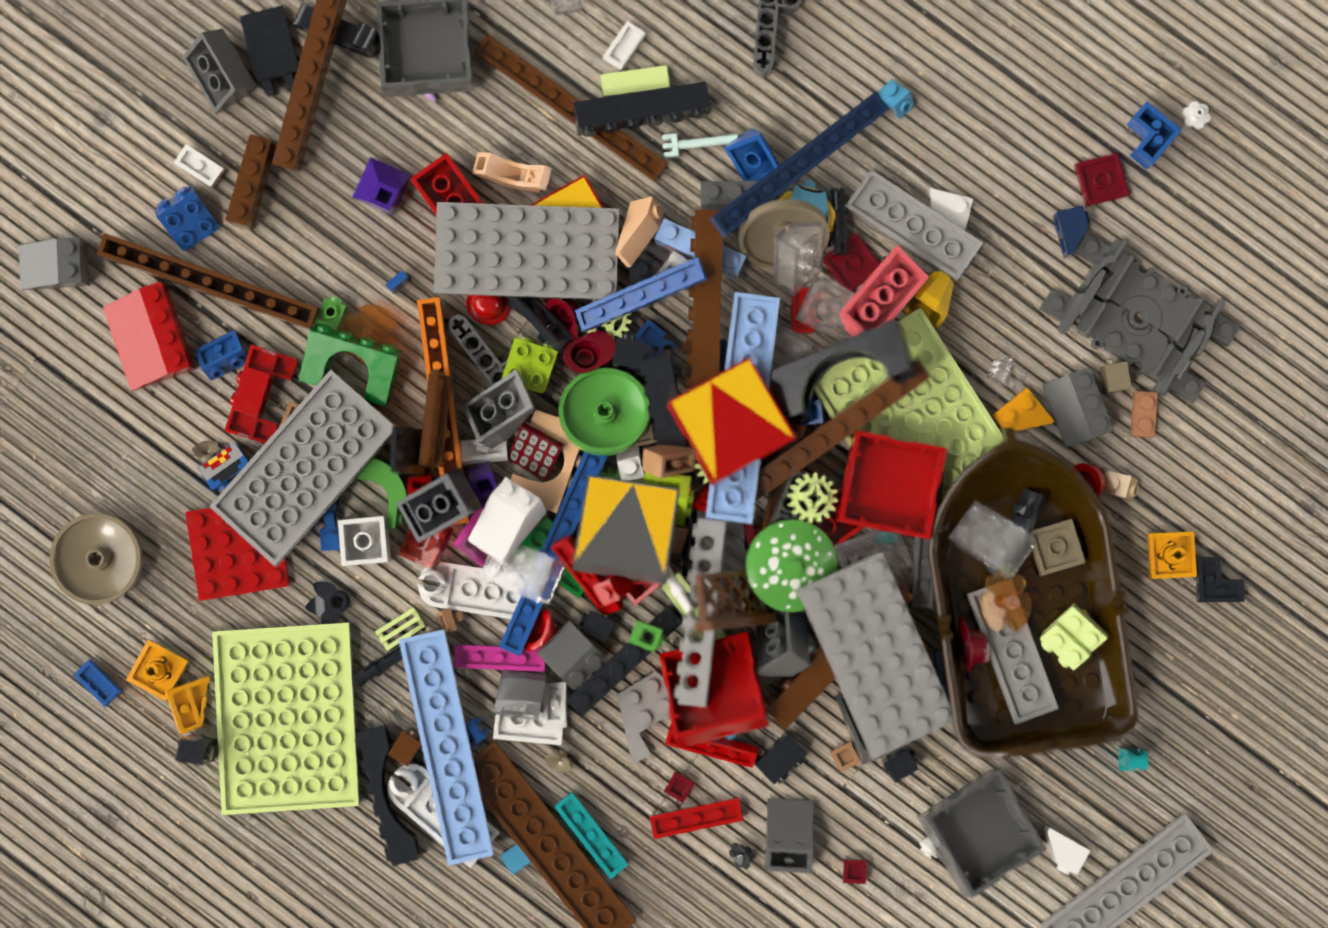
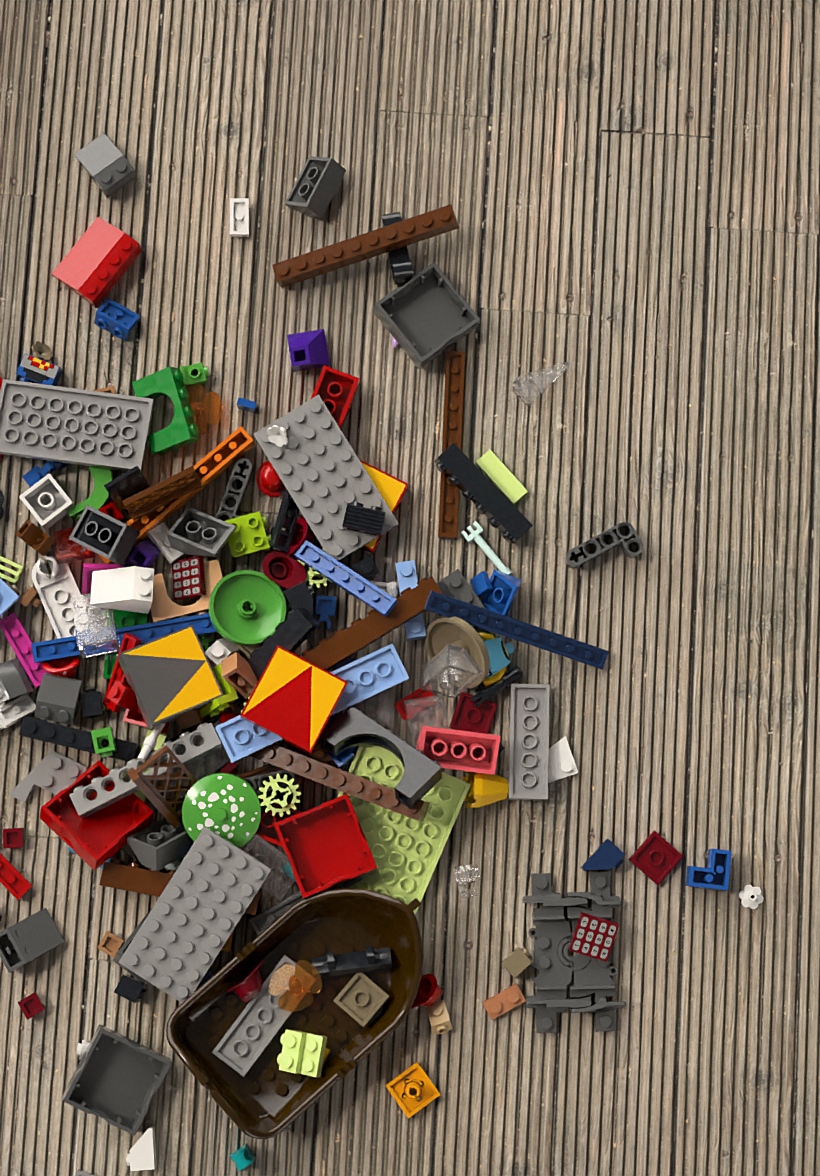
camera: 55 degrees right, 5 degrees down
(186, 218) = (196, 232): blue bracket -> none
(208, 282) = (161, 276): reddish brown brick -> none
(251, 182) = (250, 259): reddish brown brick -> none
(253, 392) = (102, 357): red bracket -> none
(270, 47) = (355, 210): black tile -> none
(393, 576) = (35, 537): none -> reddish brown brick
(453, 268) = (277, 435): none -> white plant
(511, 174) = (376, 432): light nougat arch -> none
(594, 238) = (364, 519): none -> black brick
(624, 46) = (522, 453): white tile -> none
(638, 229) = (394, 547): light nougat slope -> none
(721, 748) = (61, 855): red plate -> none
(729, 169) = (481, 584): none -> blue tile
(780, 759) = (79, 897): black brick -> none
(897, 98) = (614, 669): dark azure bracket -> none
(992, 539) = (333, 945): clear brick -> none
(1022, 413) = (445, 911): light orange wing -> none
(1077, 407) = (475, 948): dark grey slope -> none
(1142, 286) = (594, 936): none -> tile
(1211, 586) = (408, 1136): black plate -> none

